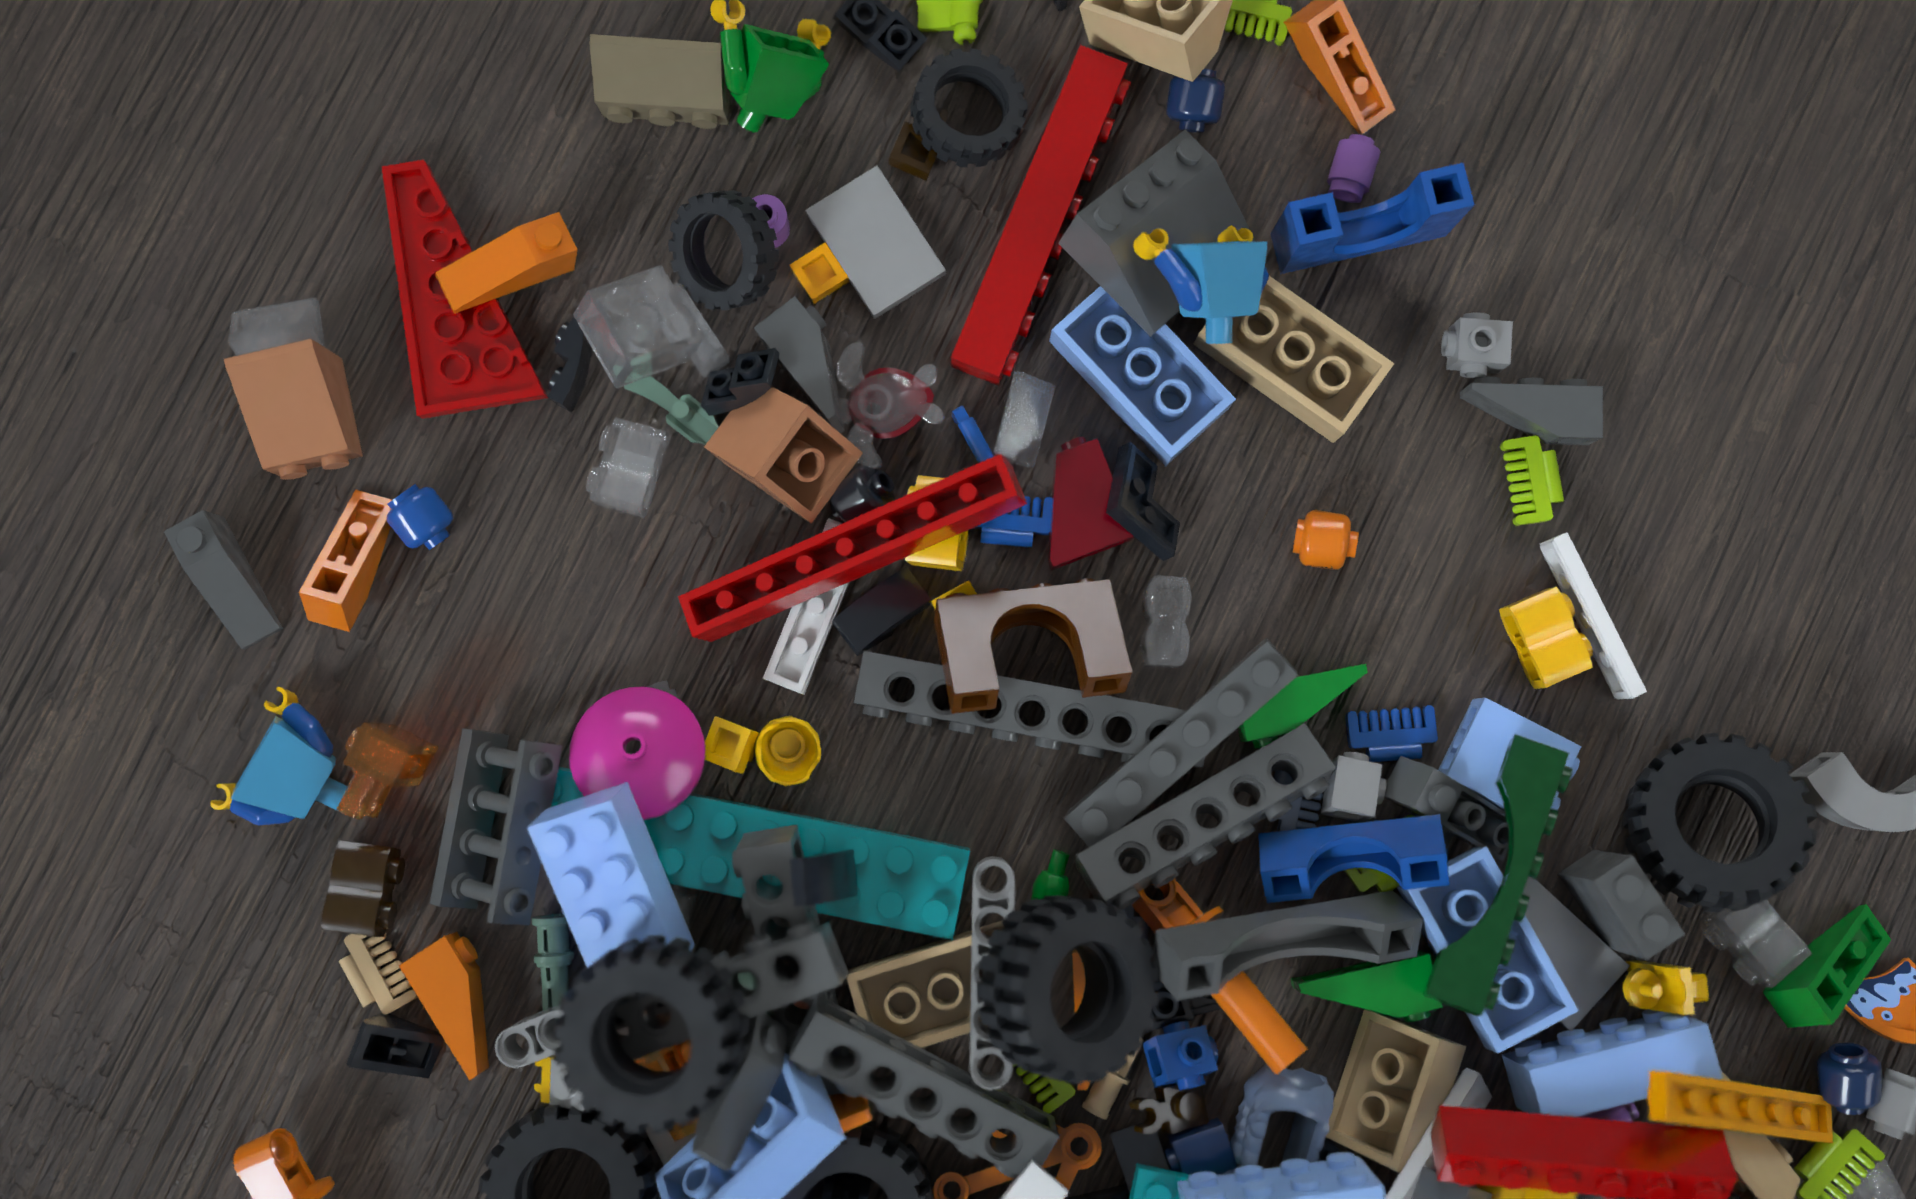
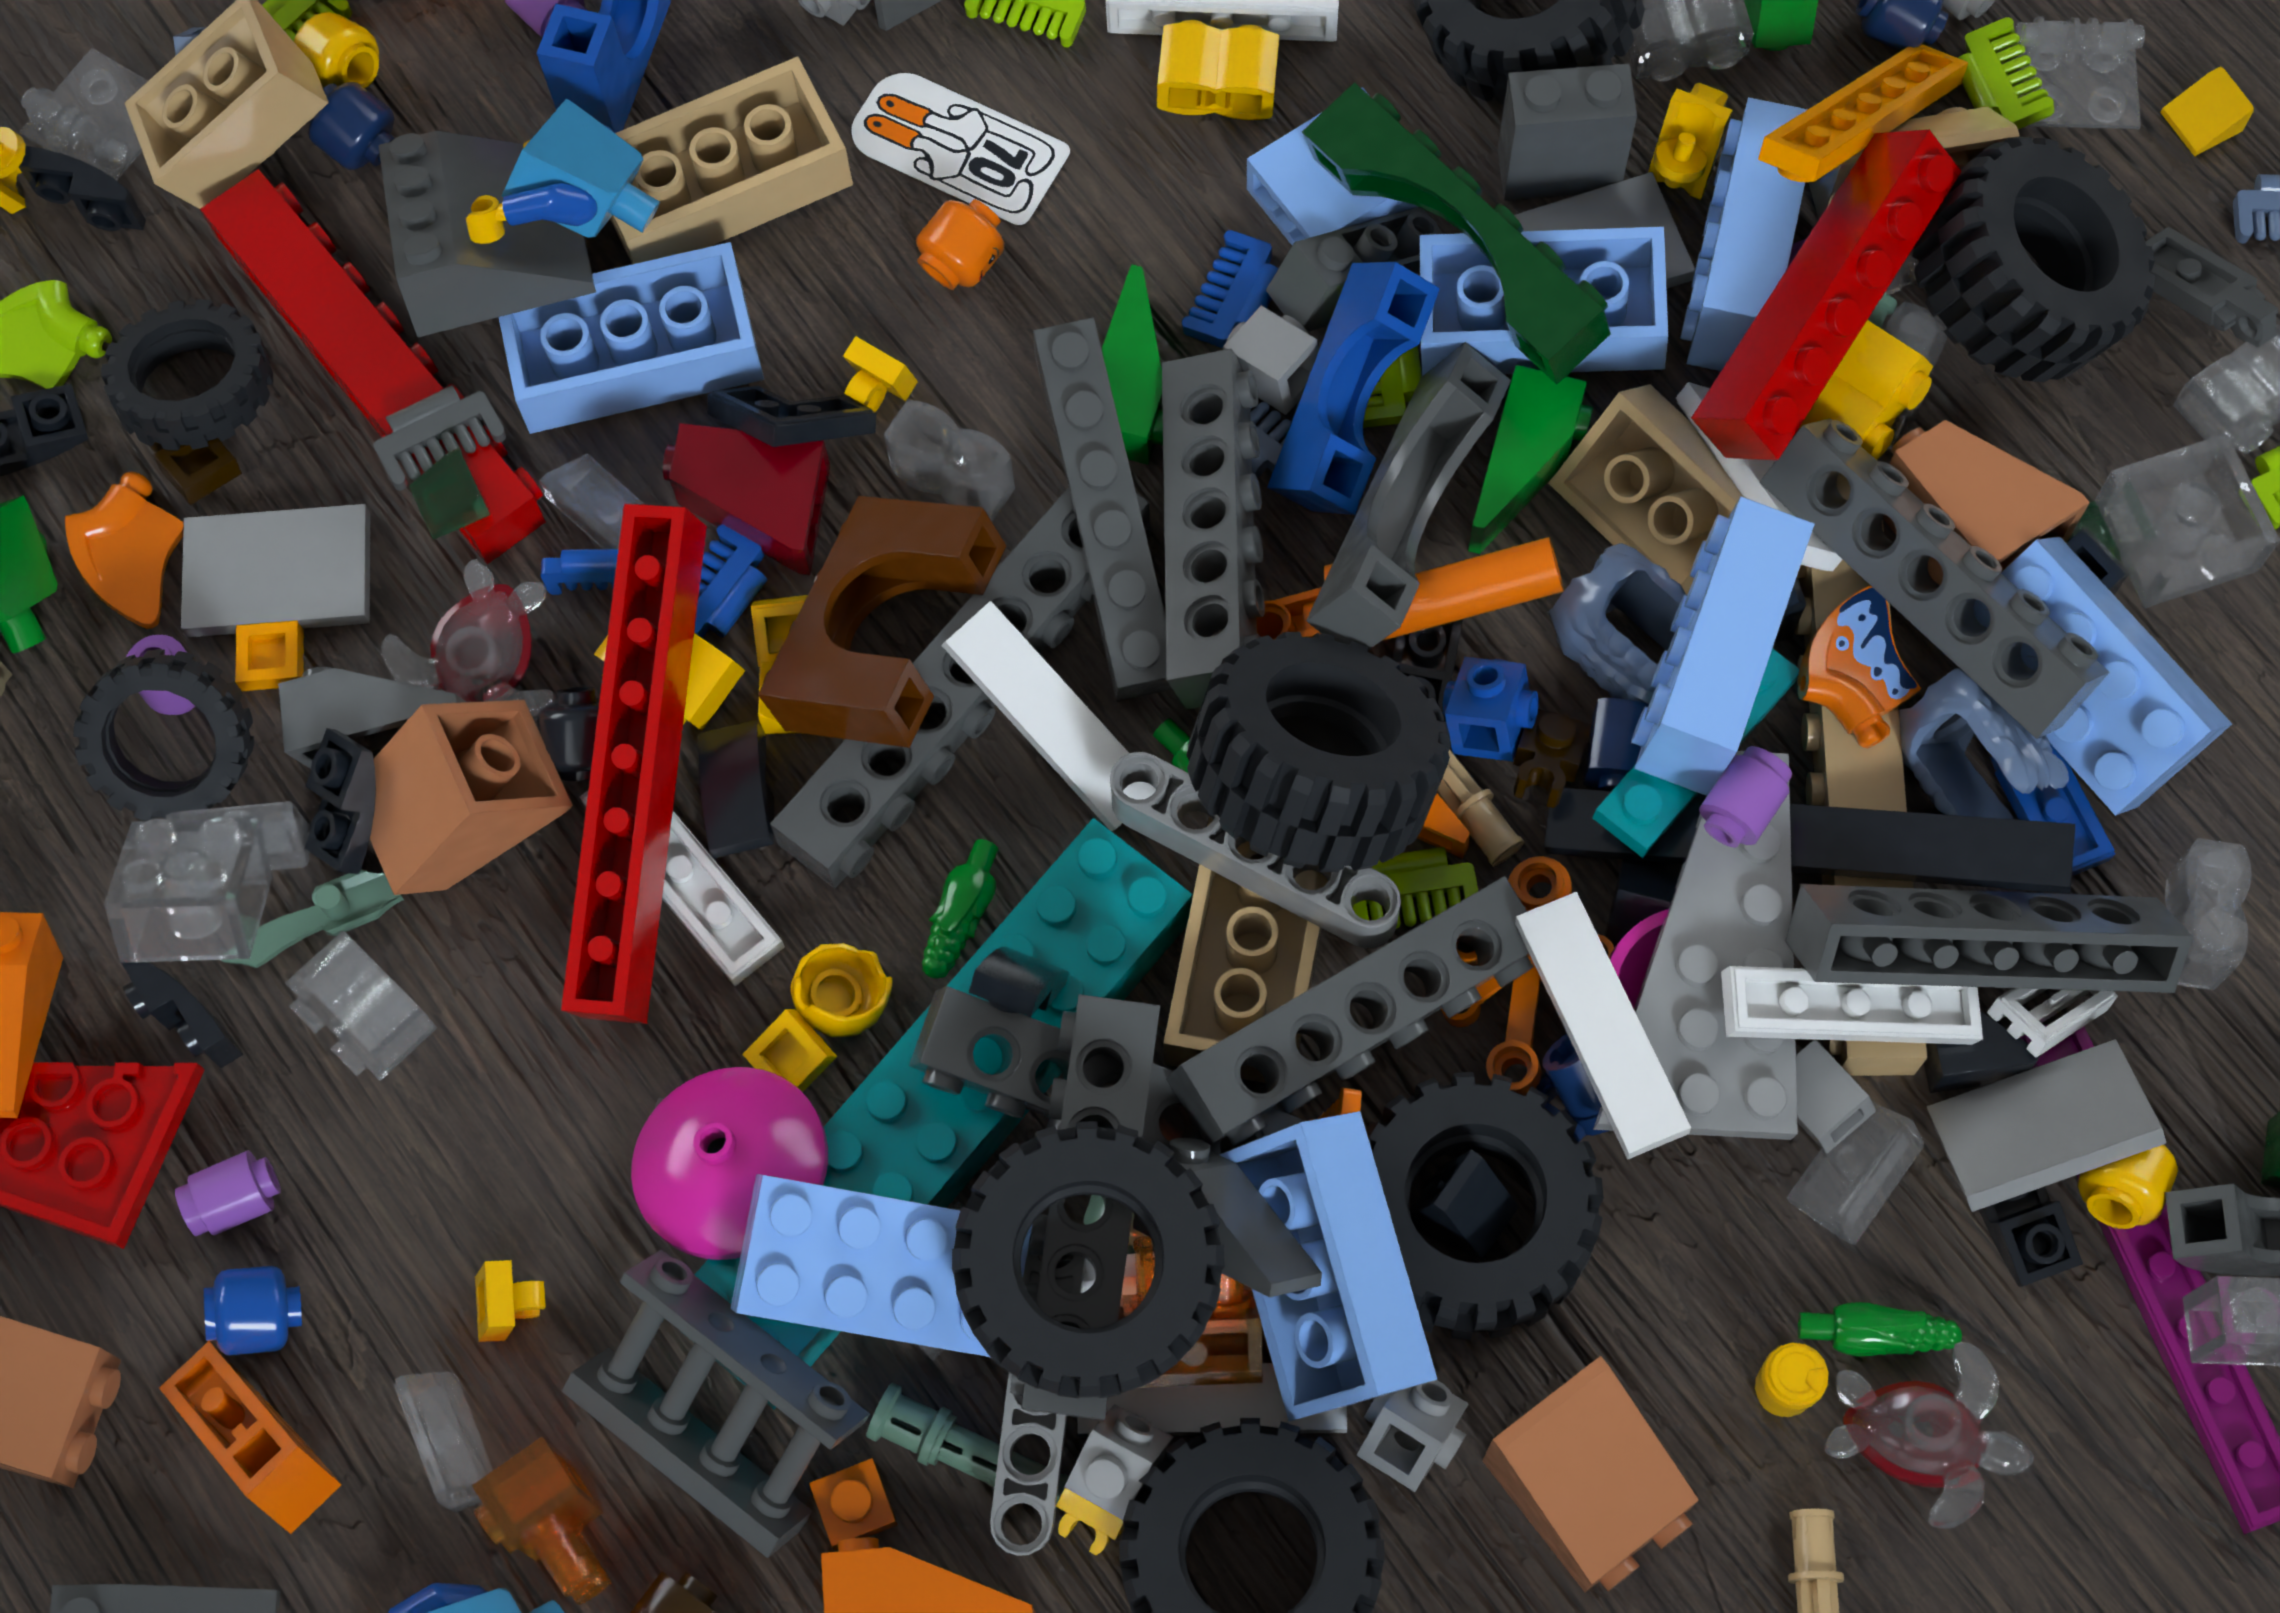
camera: 60 degrees left, 15 degrees down
(407, 674) = (444, 1436): none -> clear slope
(479, 460) = (228, 1194): none -> medium lavender brick
(489, 937) = (853, 1503): none -> orange plate
(500, 659) = (502, 1301): none -> yellow tile
(839, 141) = (125, 549): none -> orange arm
(879, 791) = (963, 902): none -> green piece
(967, 326) = (448, 495): none -> clear green slope
(1006, 571) = (772, 624): none -> yellow slope
(1008, 281) = (428, 423): none -> dark grey piece
(1027, 781) = (1042, 708): none -> white tile
(1204, 539) = (876, 375): none -> yellow tile
(1241, 57) = (339, 49): none -> yellow head
(1400, 493) = (958, 145): none -> sticker

